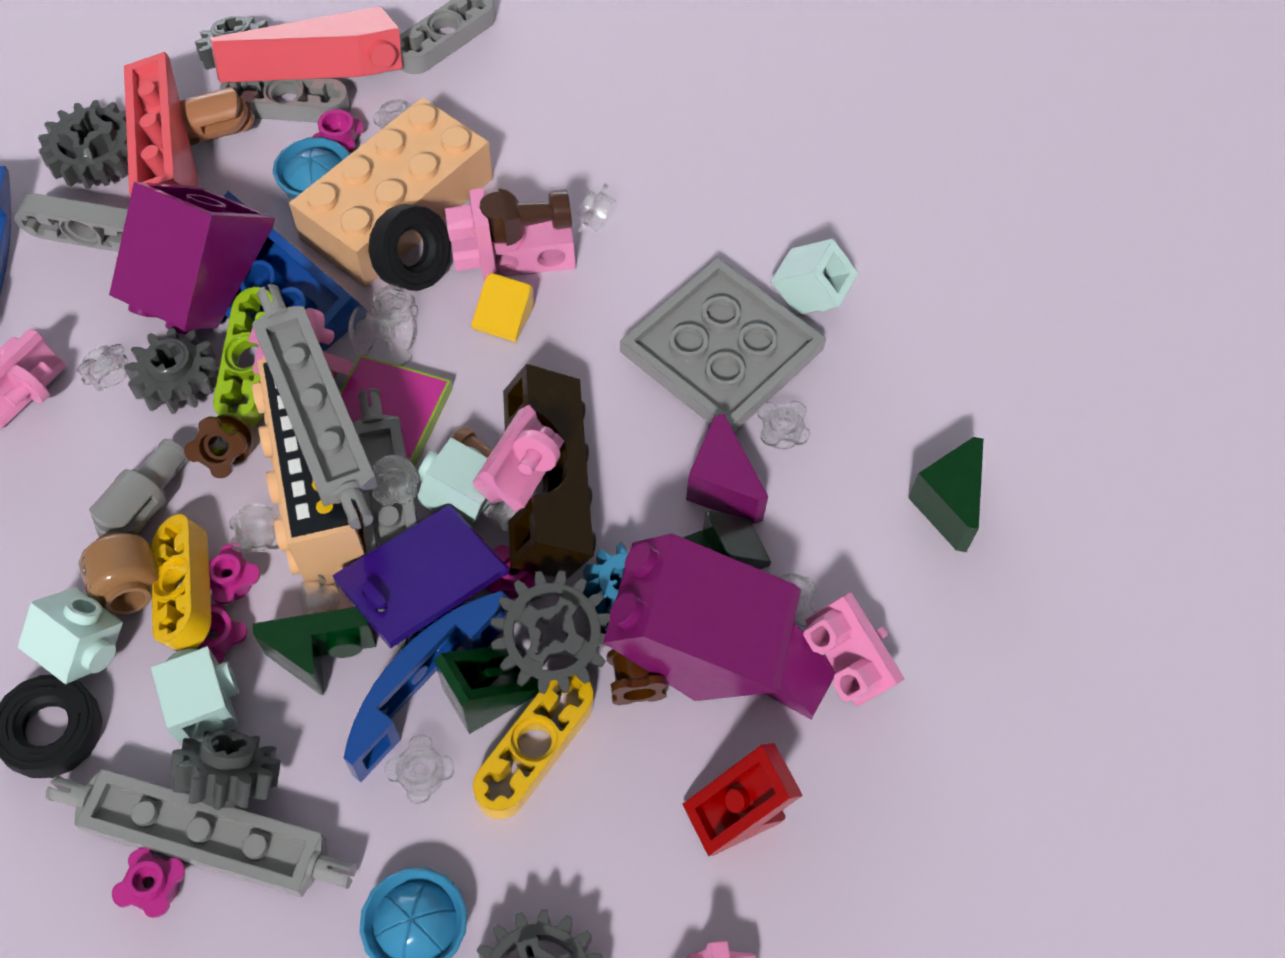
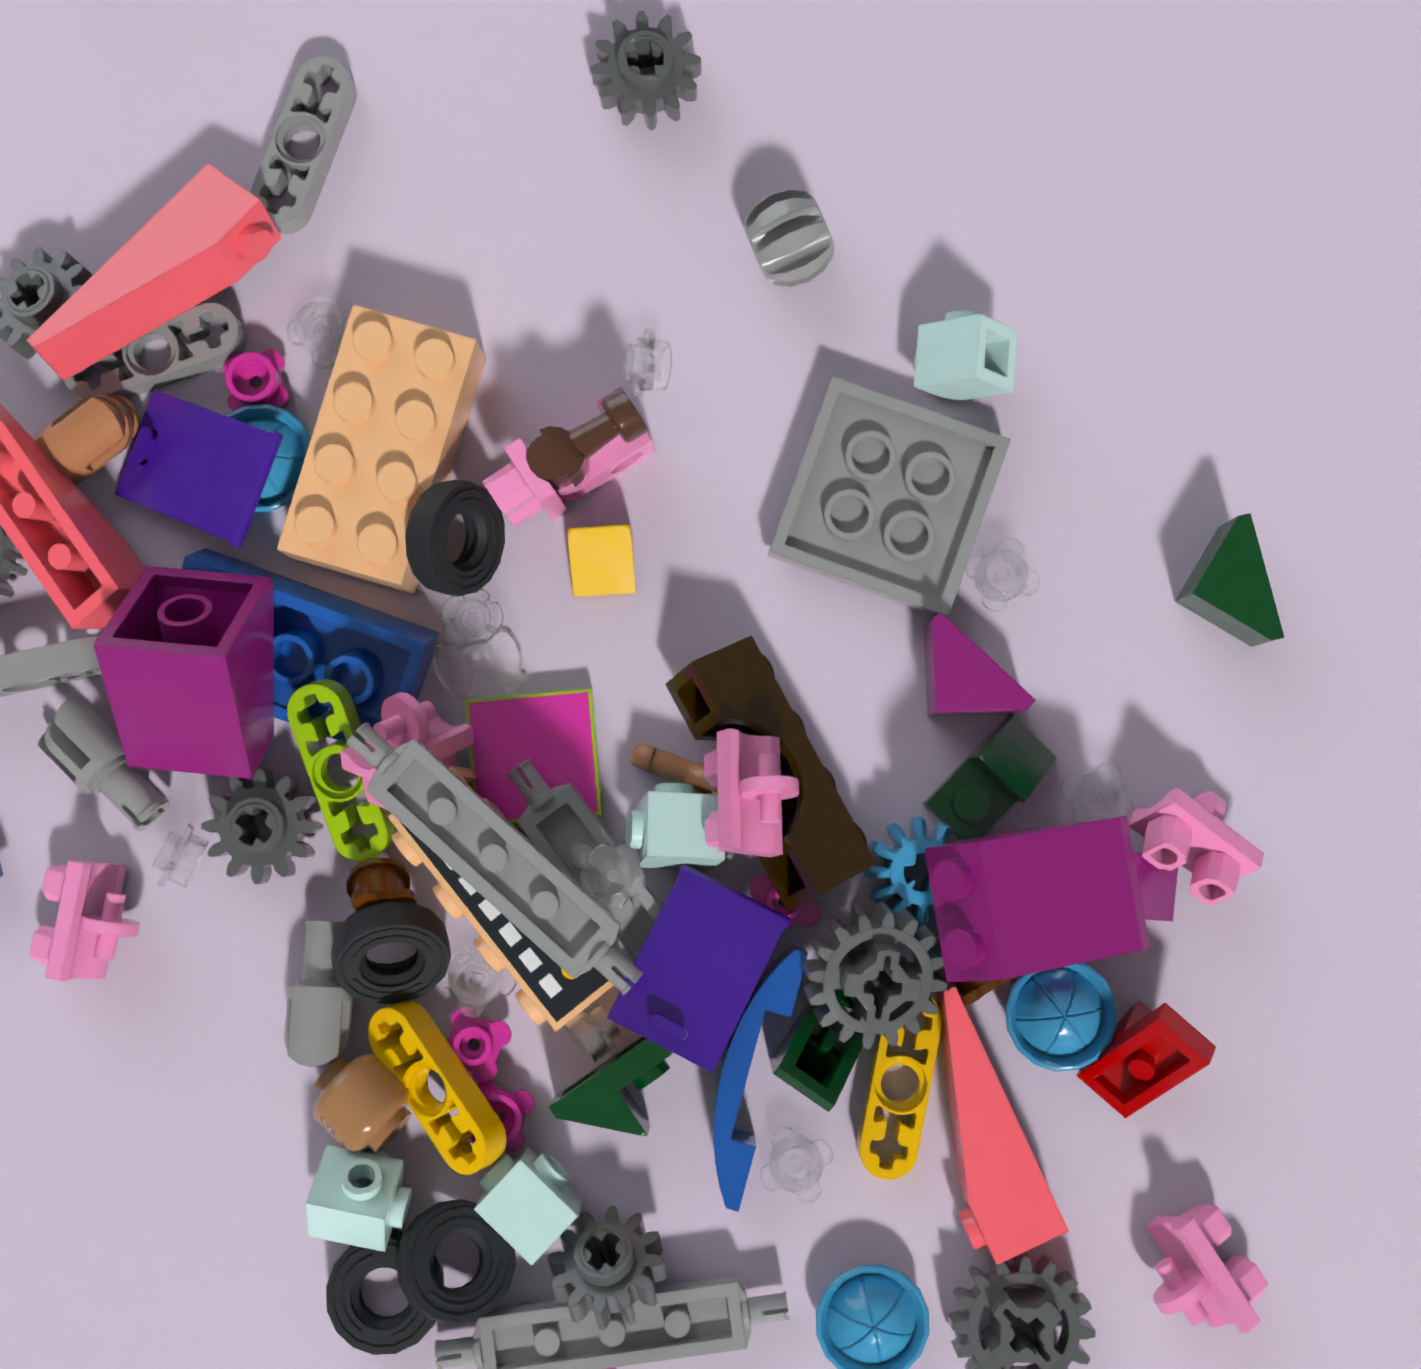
camera: 20 degrees left, 25 degrees up
(84, 739) = (416, 1267): none -> black tyre
(88, 285) = (95, 762): none -> light grey arm
(222, 450) = (385, 924): none -> black tyre
(270, 154) = (198, 467): none -> dark purple container
(578, 839) = (995, 1167): none -> coral slope
(679, 63) = (646, 47): none -> dark grey gear
(689, 740) = (1062, 1016): none -> dark azure hat
(726, 174) = (789, 237): none -> light grey piece

